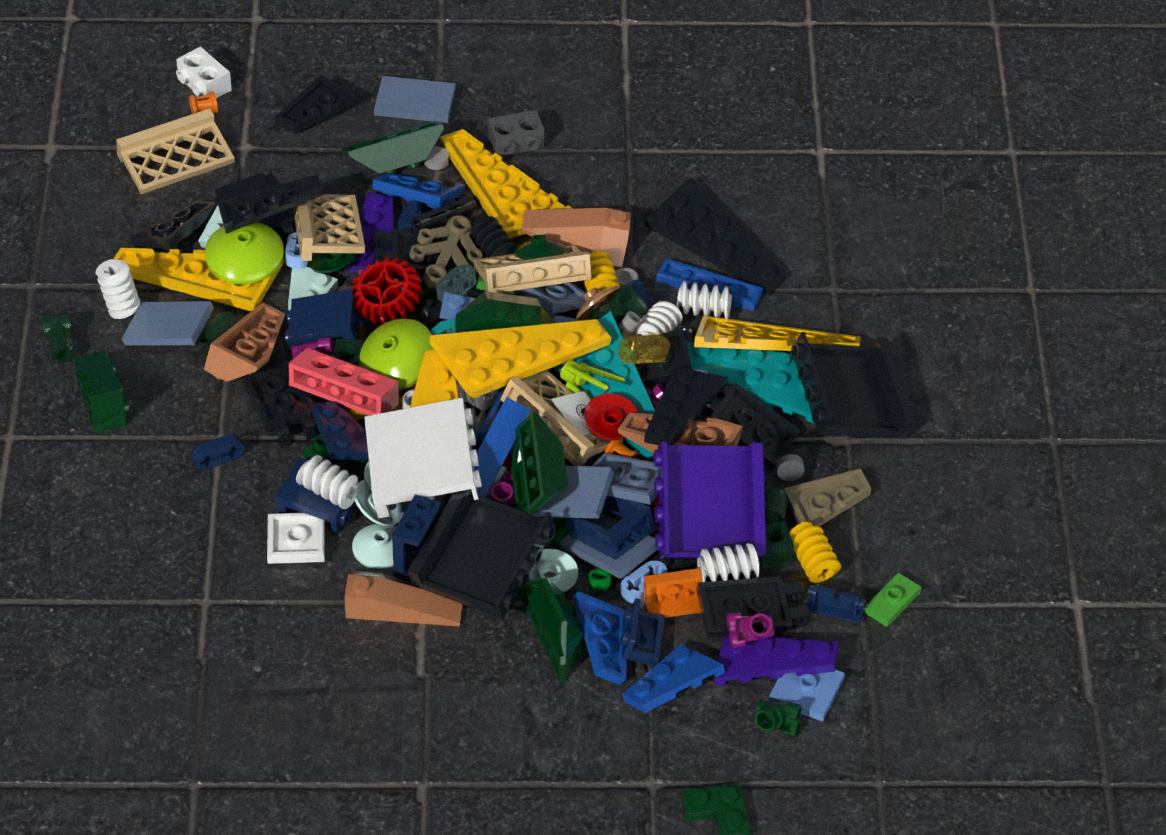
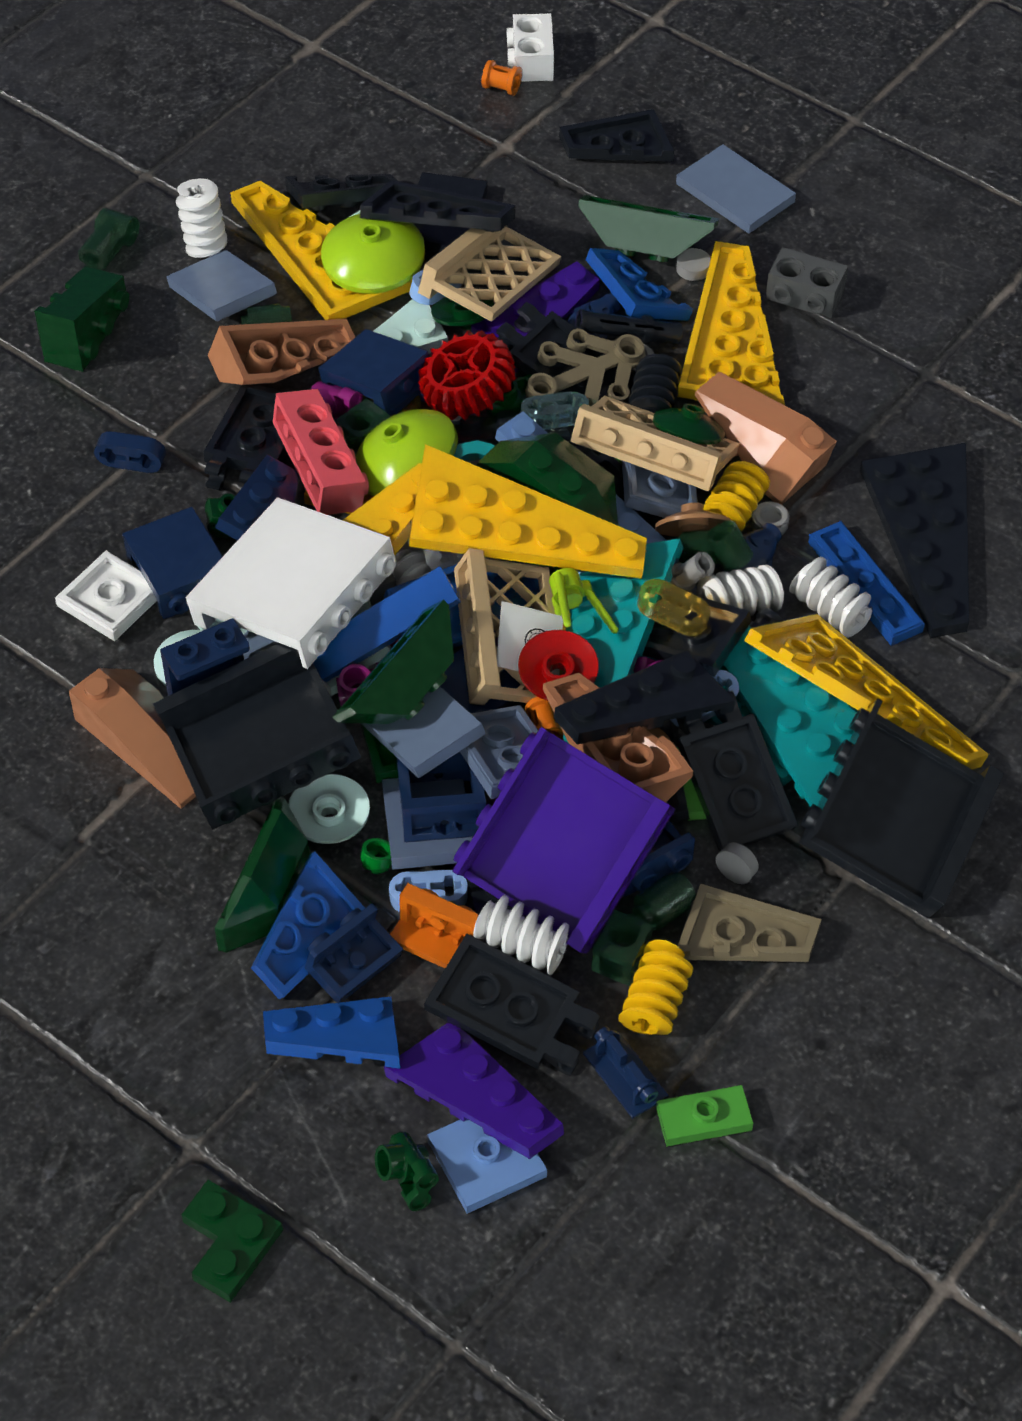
camera: 40 degrees right, 5 degrees up
(167, 137) = (425, 91): tan fence -> none
(328, 481) = (178, 550): white piece -> none
(741, 628) = (461, 1029): magenta plate -> none

